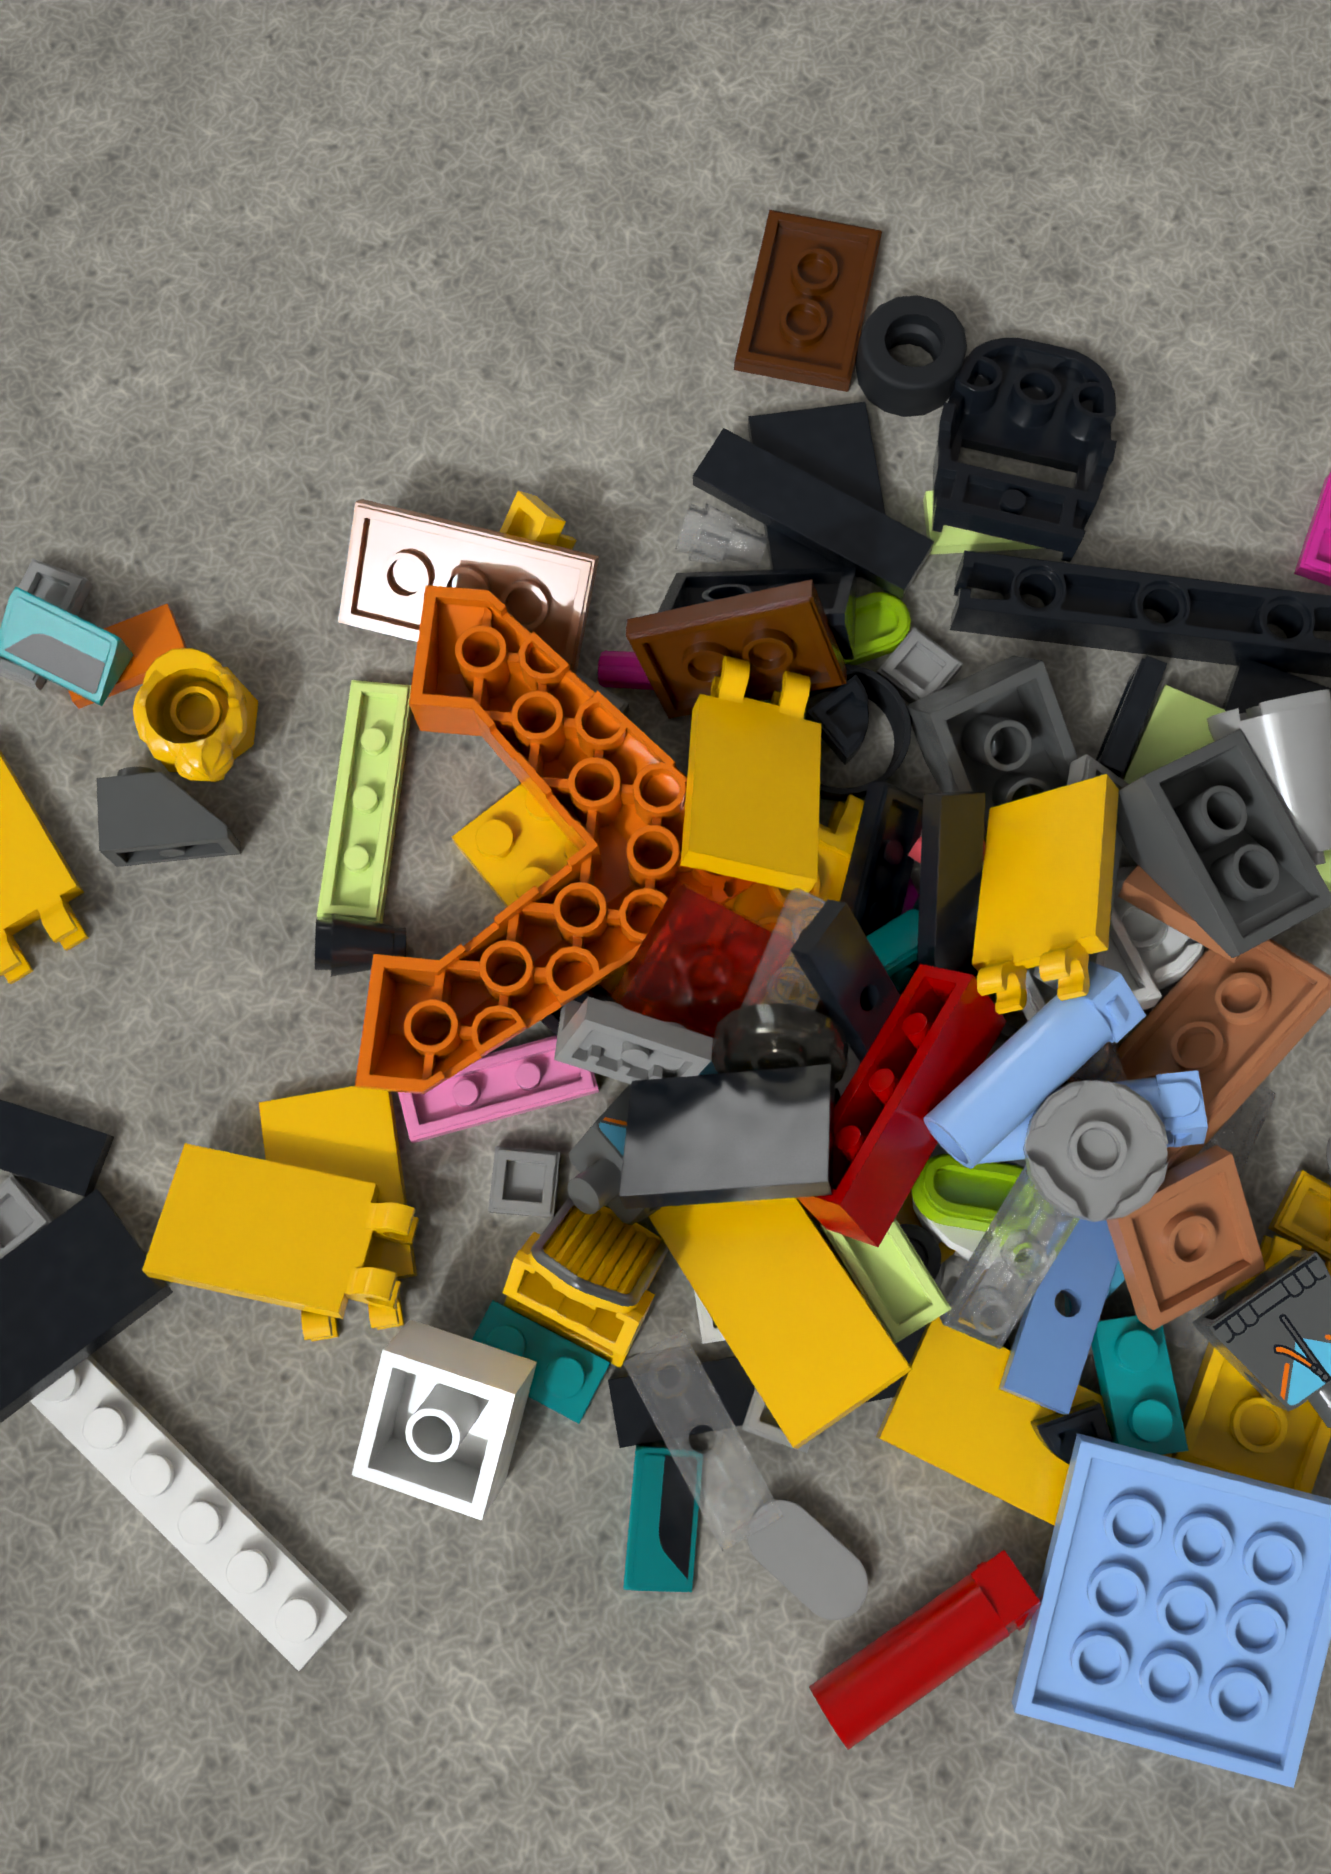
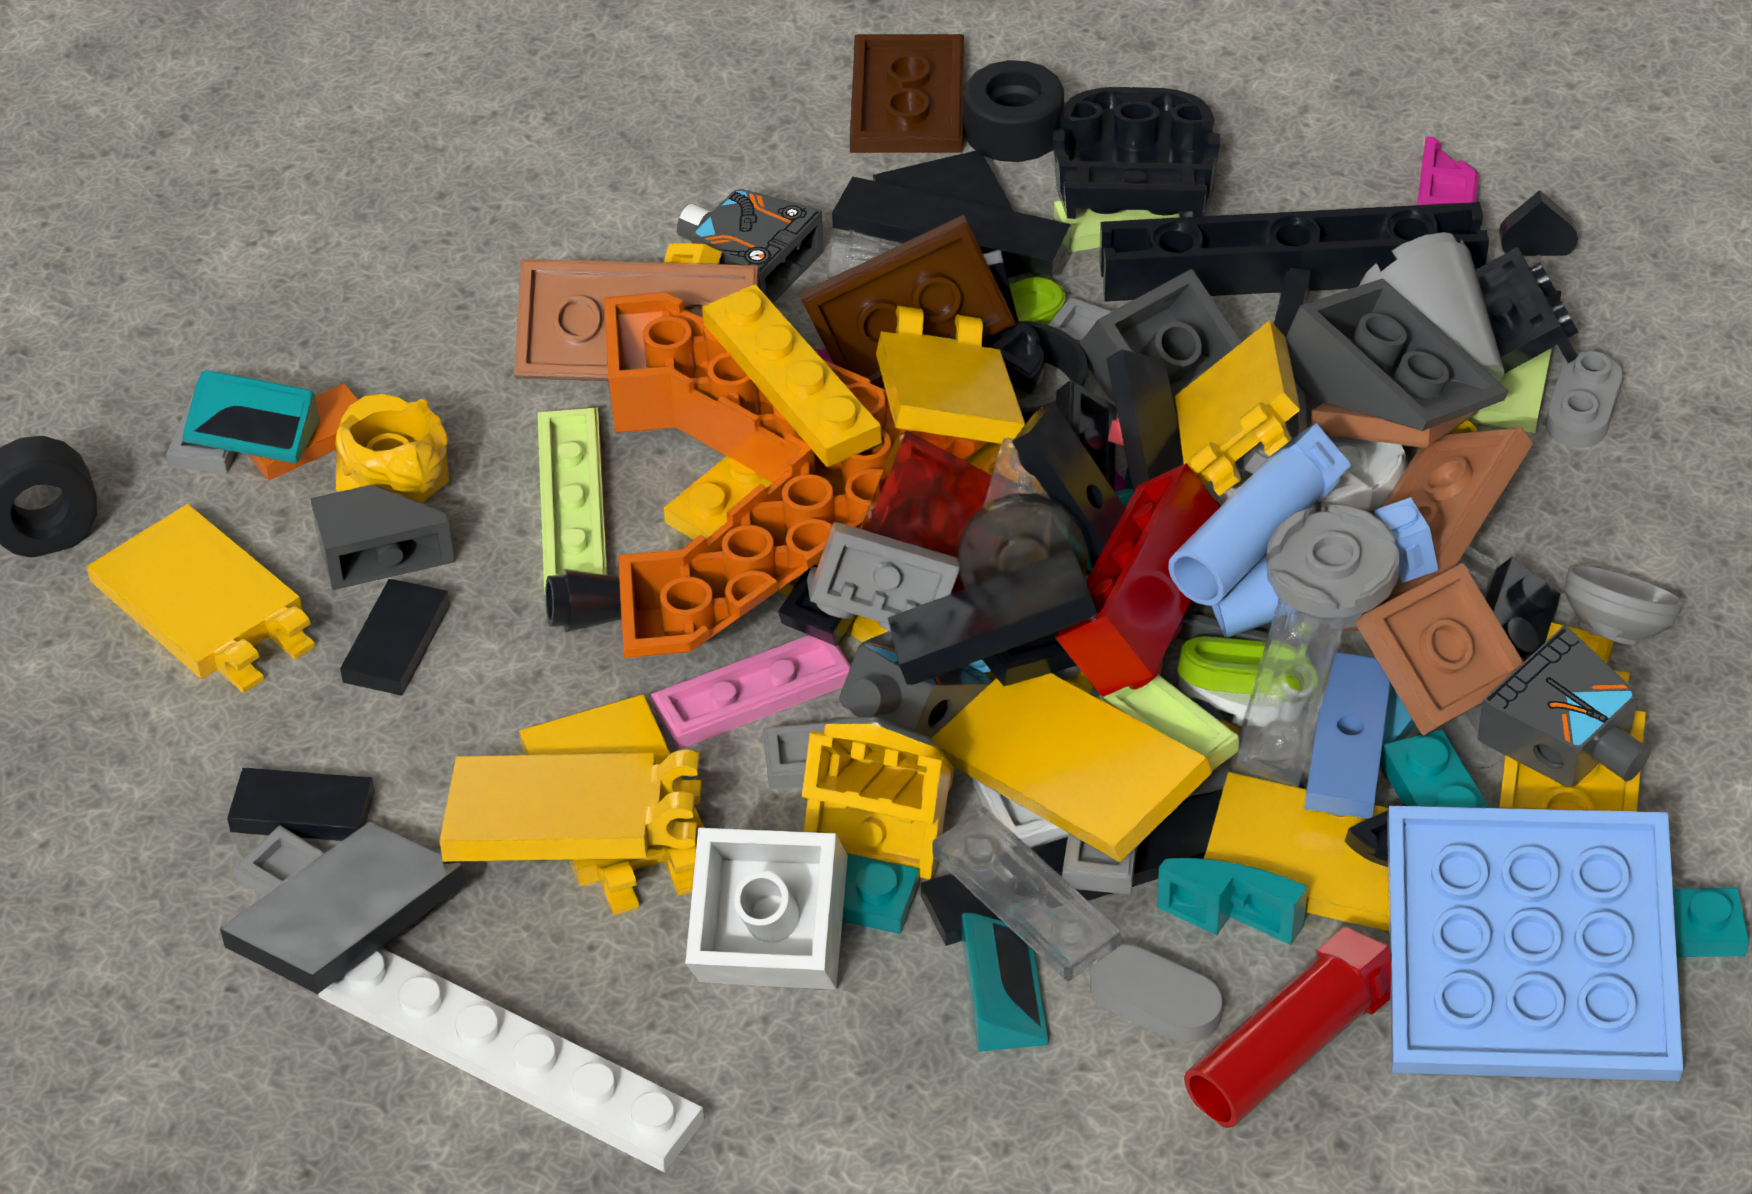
camera: 10 degrees left, 30 degrees down
(164, 947) = (395, 637): none -> black tile
(593, 746) = (792, 375): none -> yellow plate
(606, 494) = (761, 232): none -> dark grey torso
(889, 1465) = (1215, 890): none -> teal slope
(1272, 1161) = (1522, 606): none -> black plate

